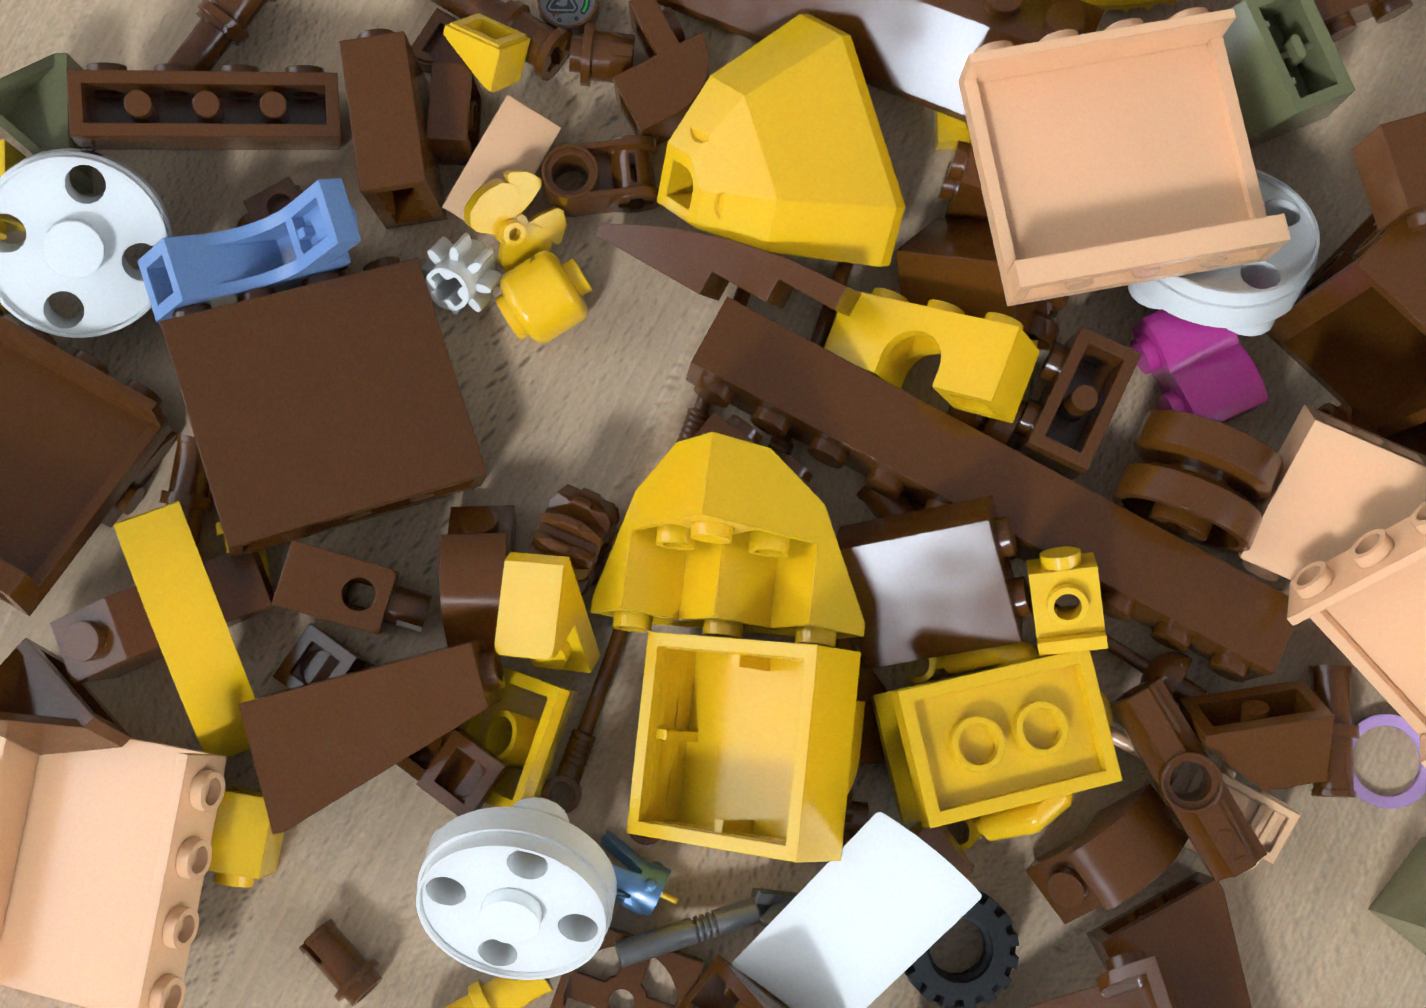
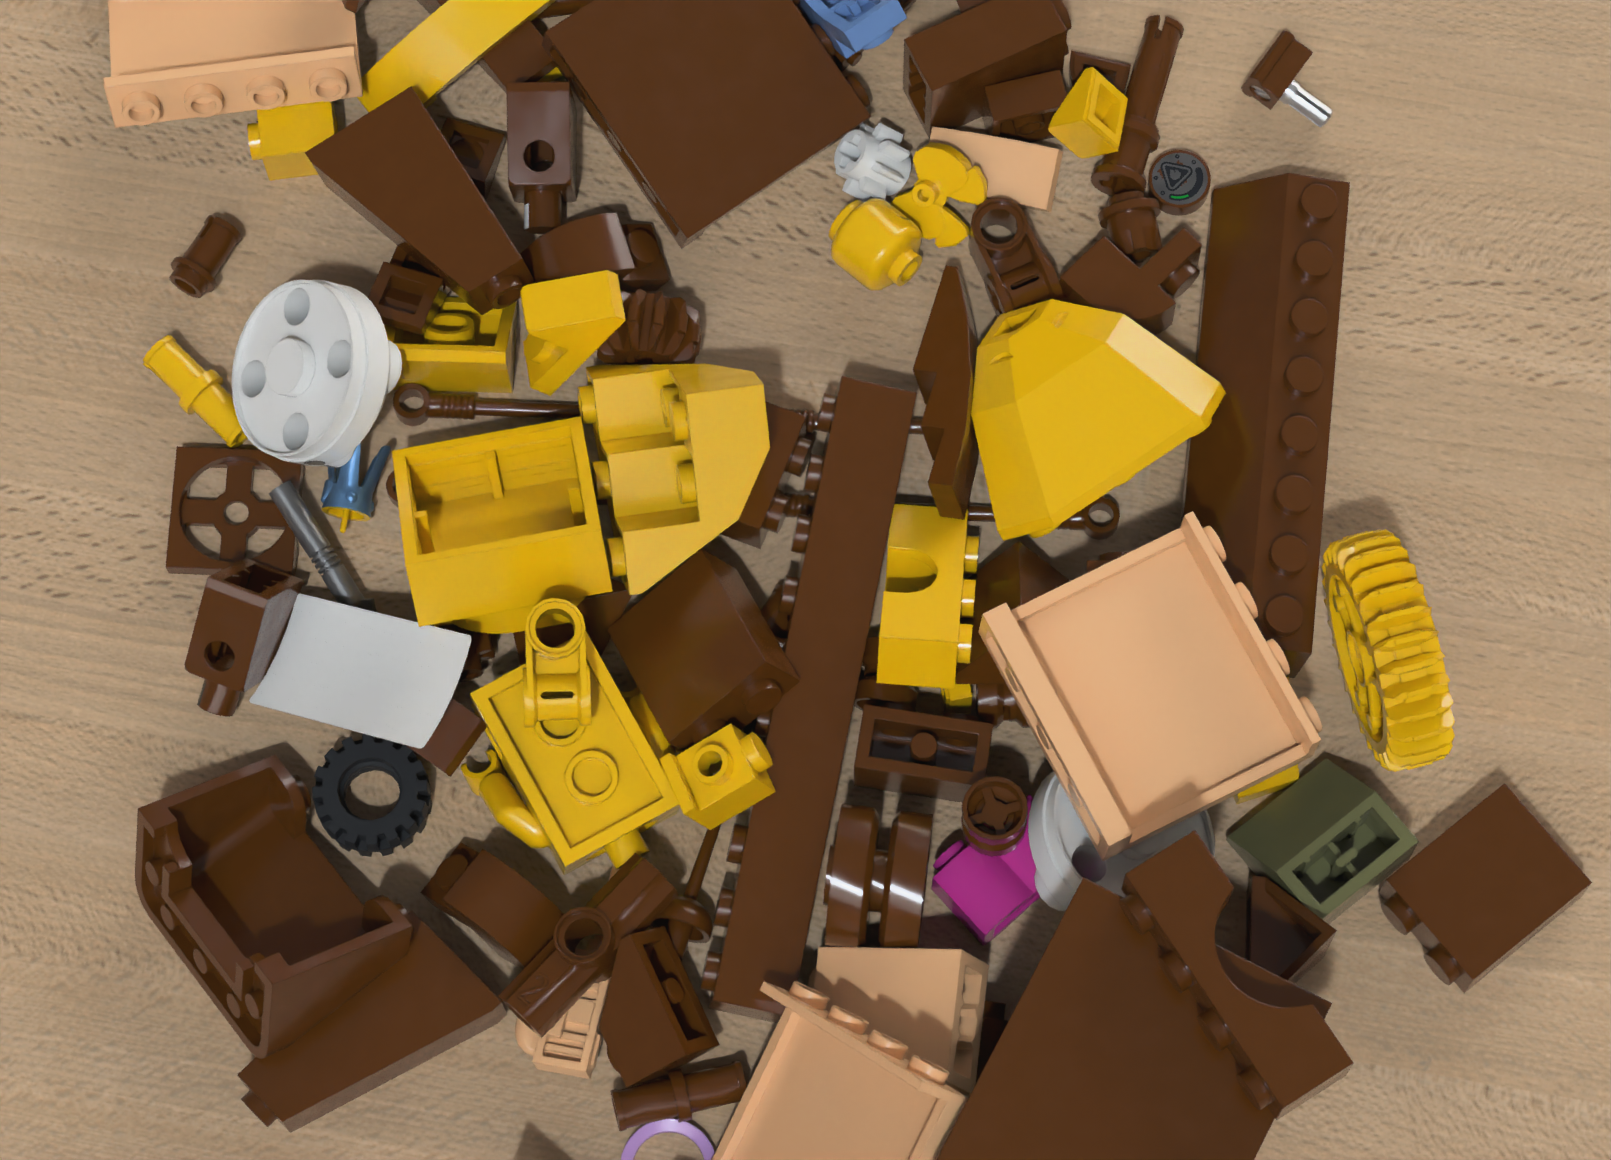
camera: 75 degrees right, 10 degrees down
(947, 733) = (556, 669): none -> yellow piece
(1189, 346) = (992, 803): none -> reddish brown wheel
(1324, 139) = (1283, 932): none -> reddish brown slope

